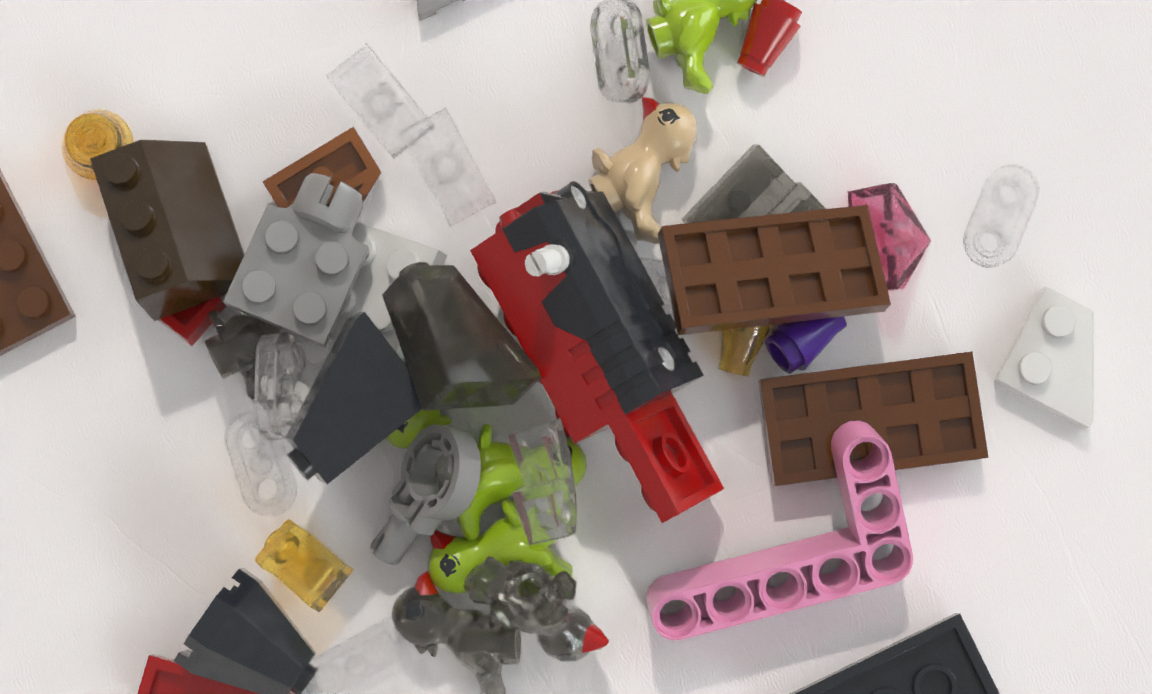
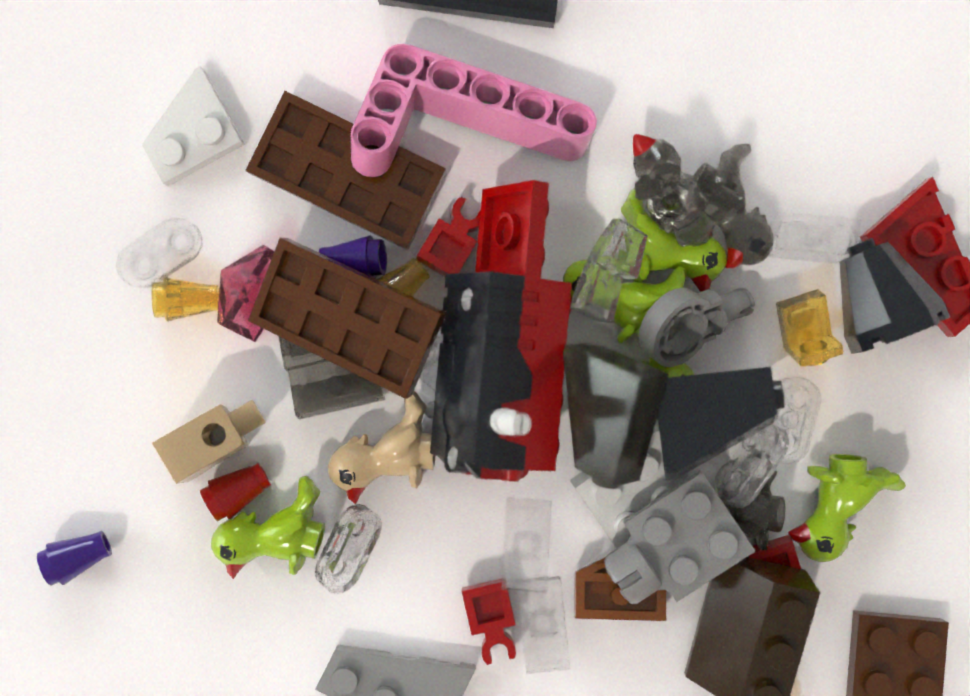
camera: 145 degrees left, 5 degrees up
(165, 423) = (841, 494): none -> lime animal
(439, 78) = (489, 613): none -> red plate
(720, 411) = (449, 244): none -> red plate
(837, 46) = (189, 449): none -> tan torso
(946, 186) = (181, 298): none -> clear yellow cone

